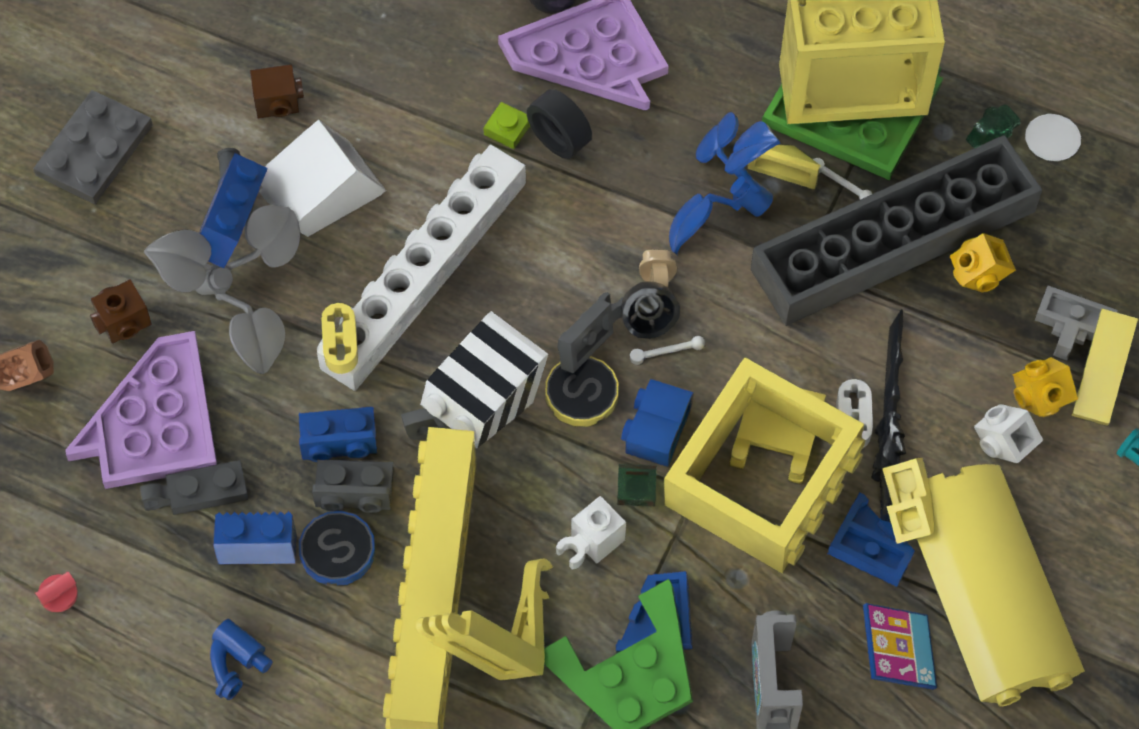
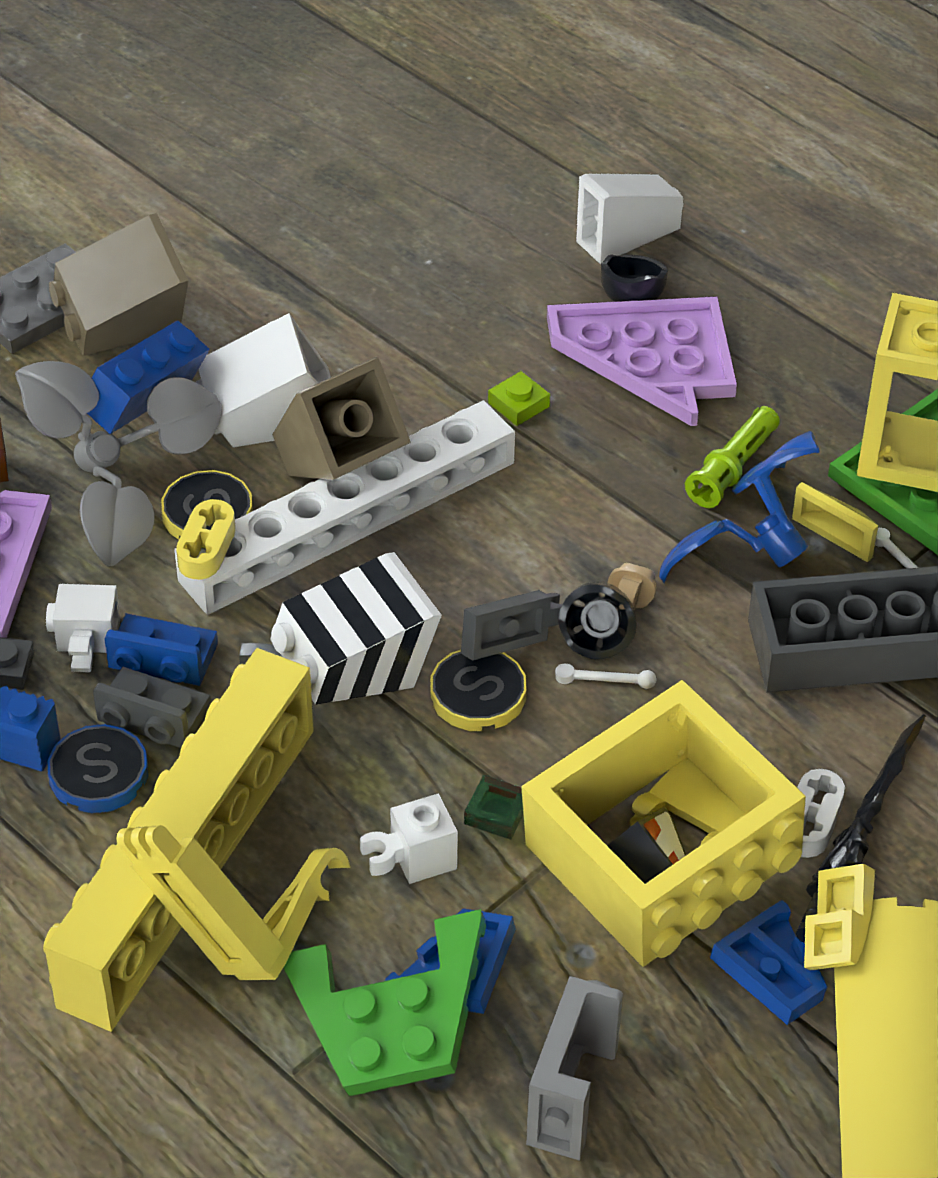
camera: 20 degrees right, 15 degrees down
(166, 127) = (120, 287): none -> dark tan slope
(272, 432) = (82, 621): none -> white brick
(276, 91) = (265, 293): reddish brown brick -> none
(308, 294) = (200, 486): none -> black tile
(401, 210) = (340, 424): none -> dark tan slope
(559, 123) = (576, 402): black tyre -> none
(658, 422) = (552, 734): blue brick -> none
(686, 140) = (724, 466): none -> lime pin
(761, 489) = (649, 845): none -> black slope
(899, 646) = (758, 1093): piece -> none

